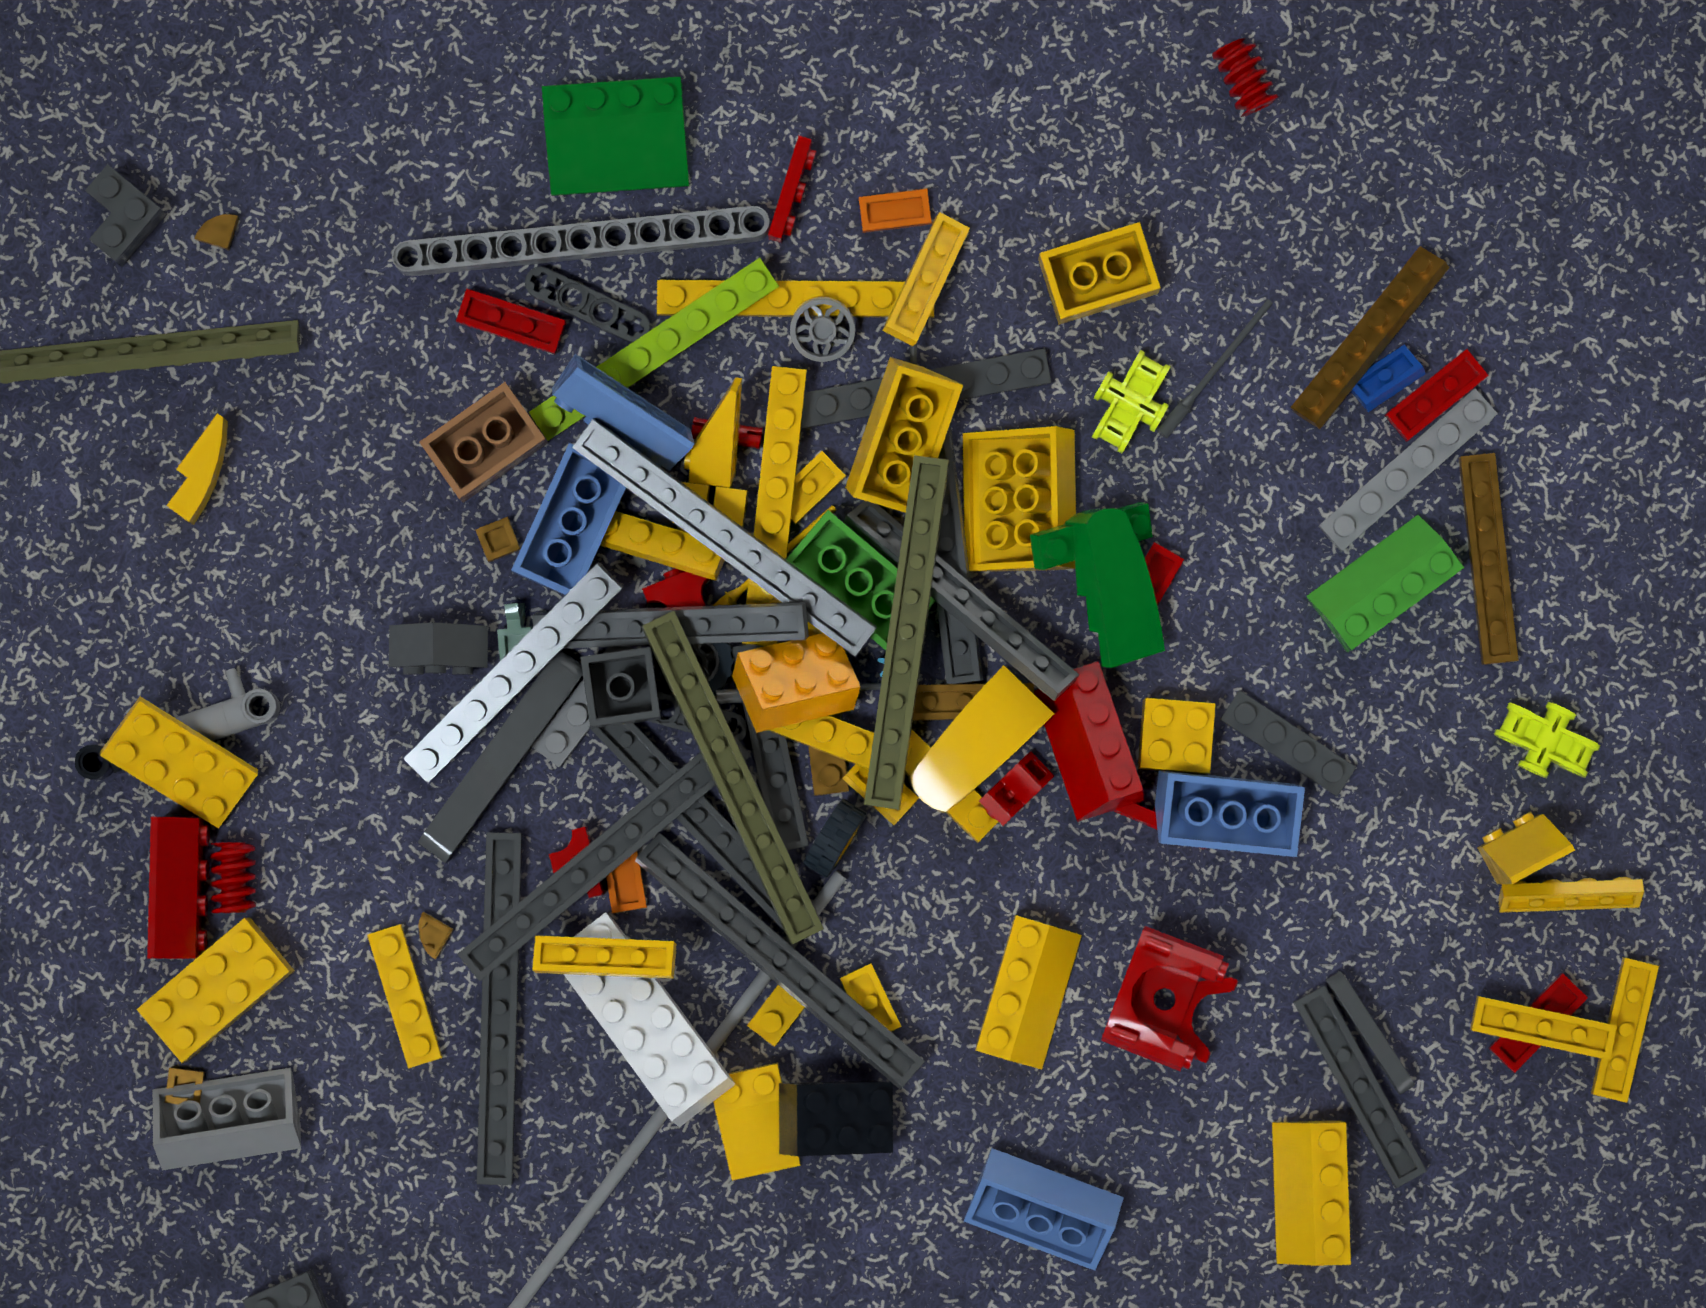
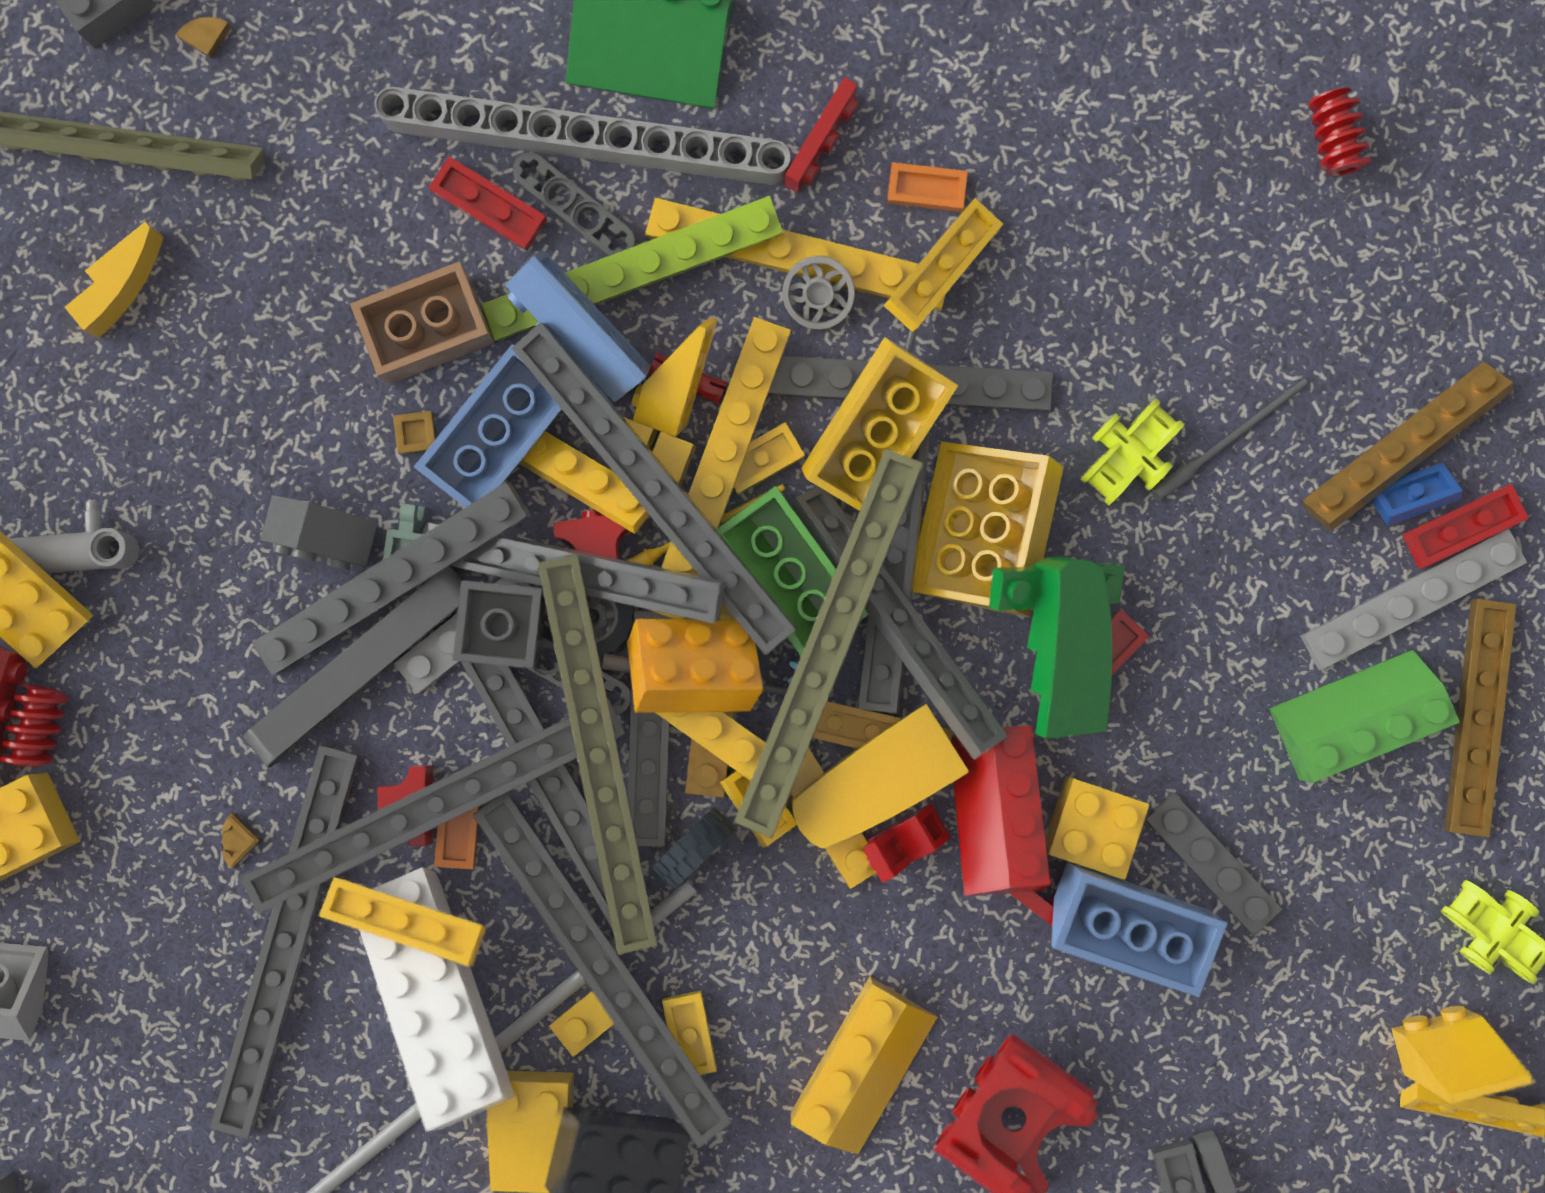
camera: 15 degrees right, 0 degrees up
(404, 996) = (189, 900): yellow plate -> none
(1099, 273) = (1133, 303): yellow brick -> none

